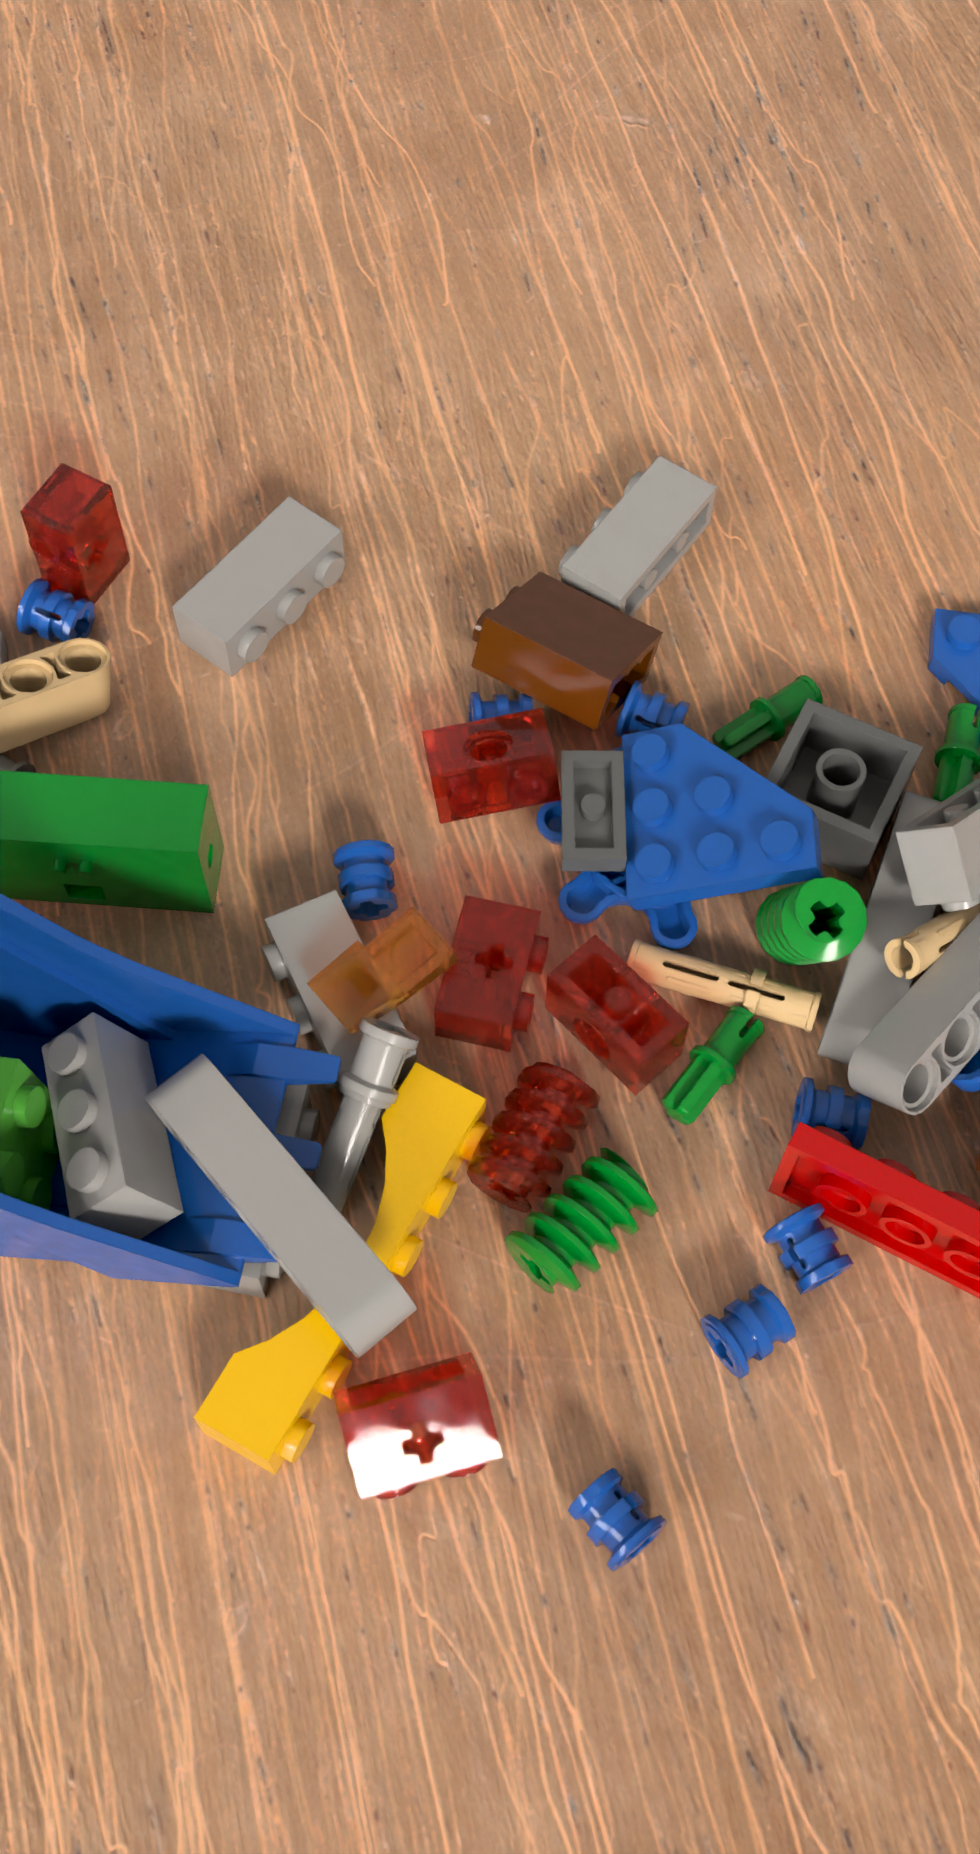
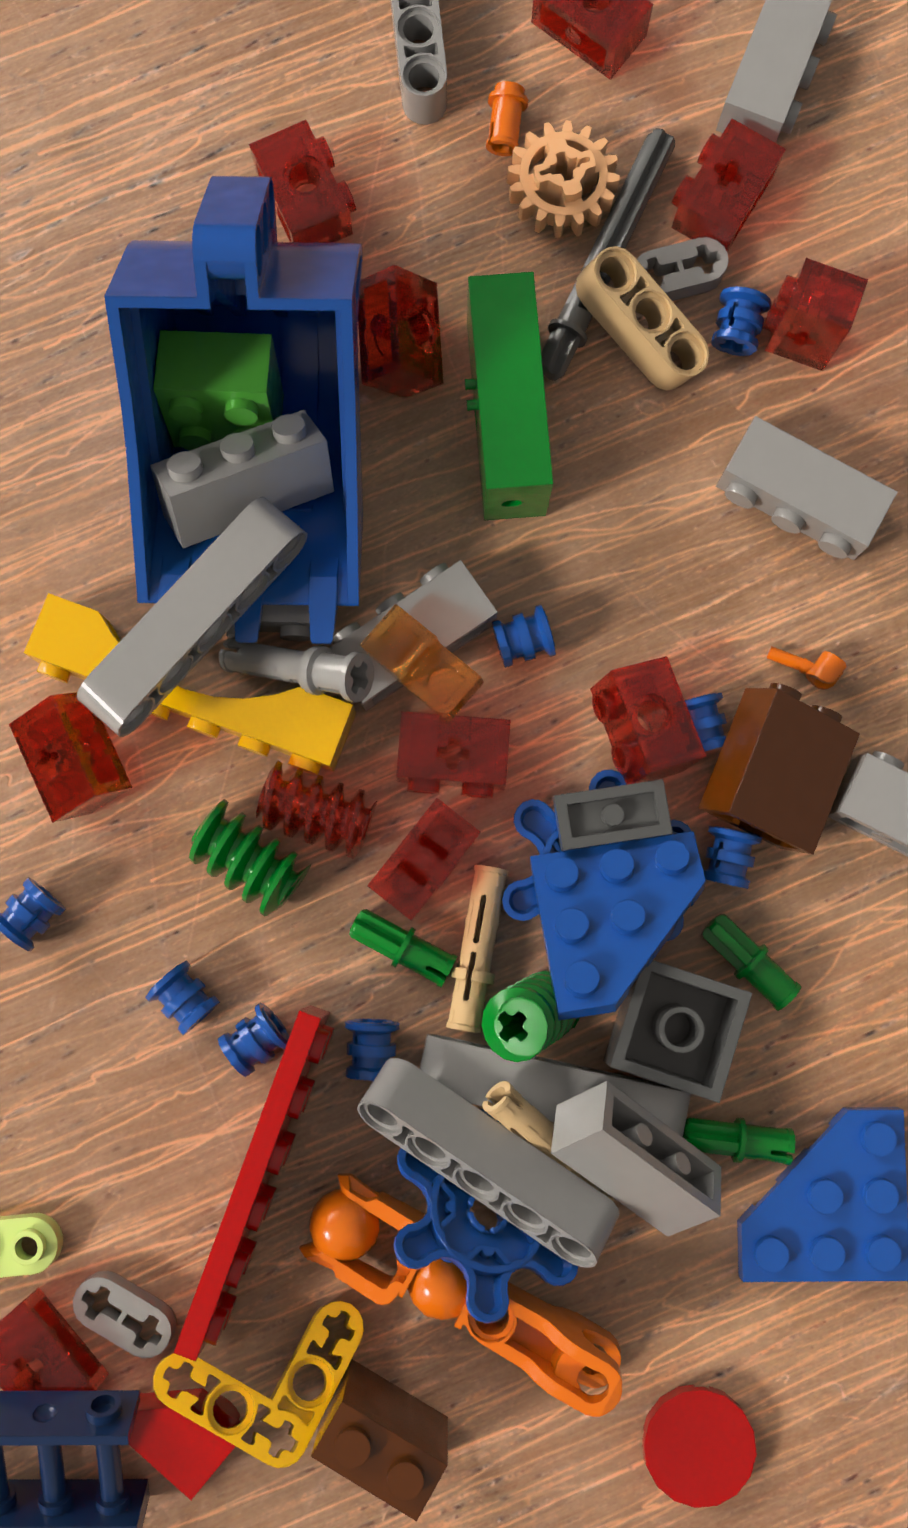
camera: 80 degrees right, 20 degrees up
(464, 609) = (821, 674): none -> orange hand

